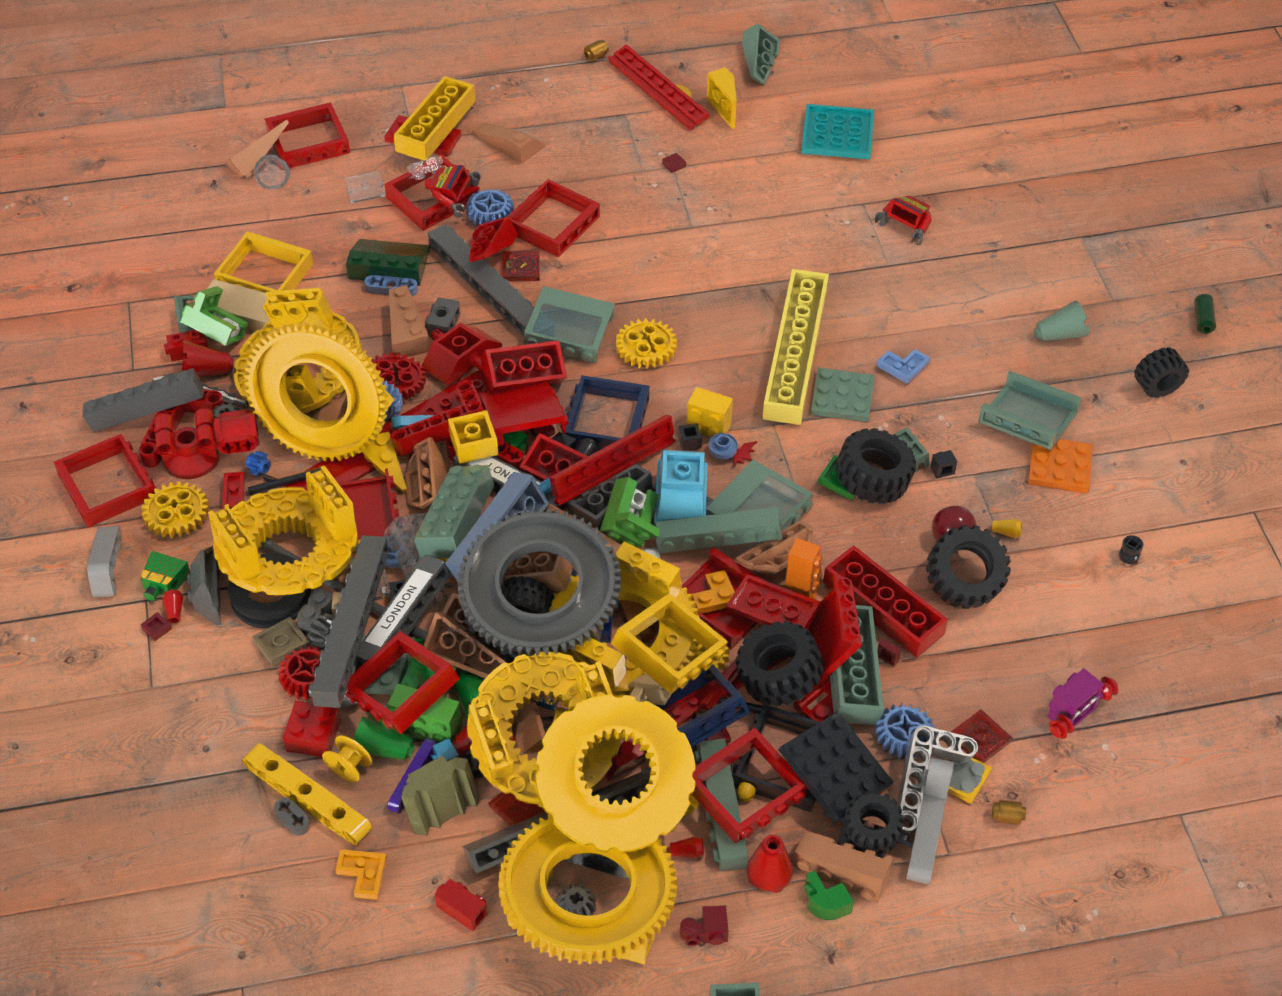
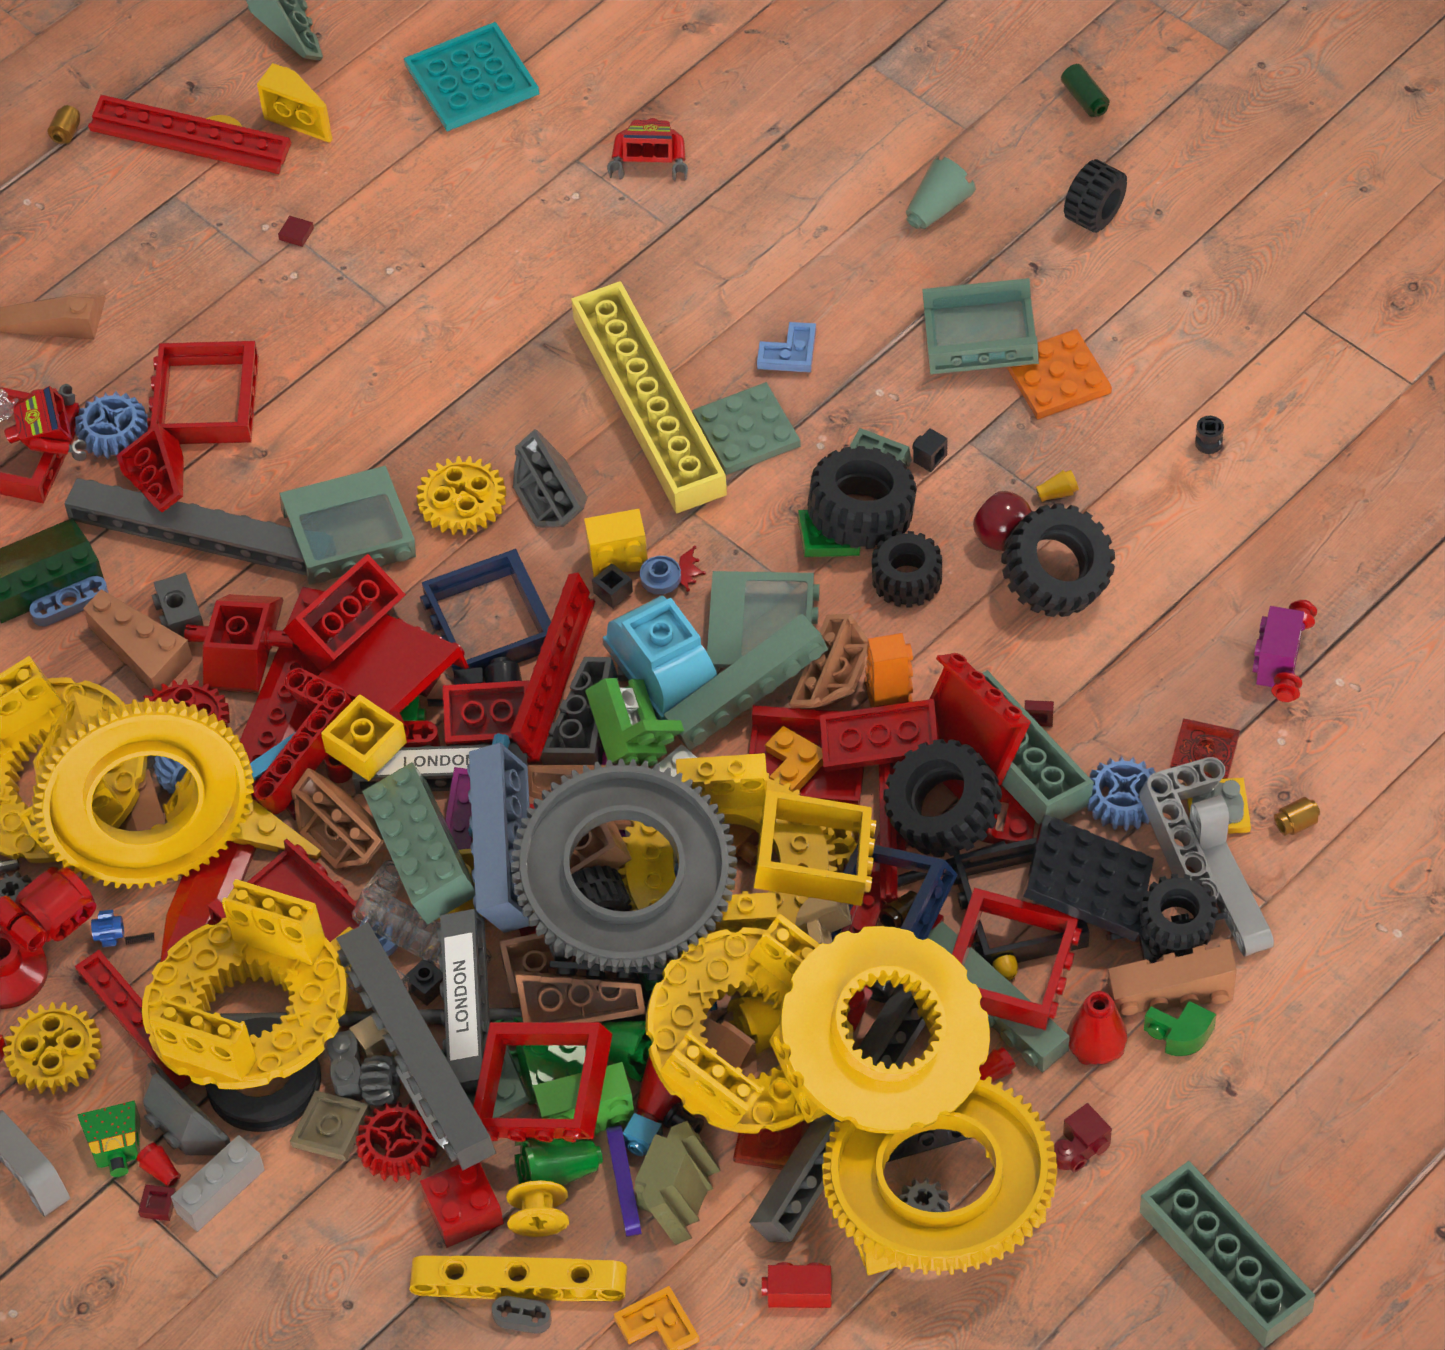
camera: 30 degrees left, 5 degrees up
(192, 634) = (217, 1183): none -> light grey brick
(280, 482) = (163, 927): black bar -> none
(521, 265) = (216, 480): clear red tile -> none
(699, 360) = (546, 483): none -> dark grey wedge
(873, 535) = (907, 587): none -> black tyre
(894, 606) = (1017, 656): red brick -> none

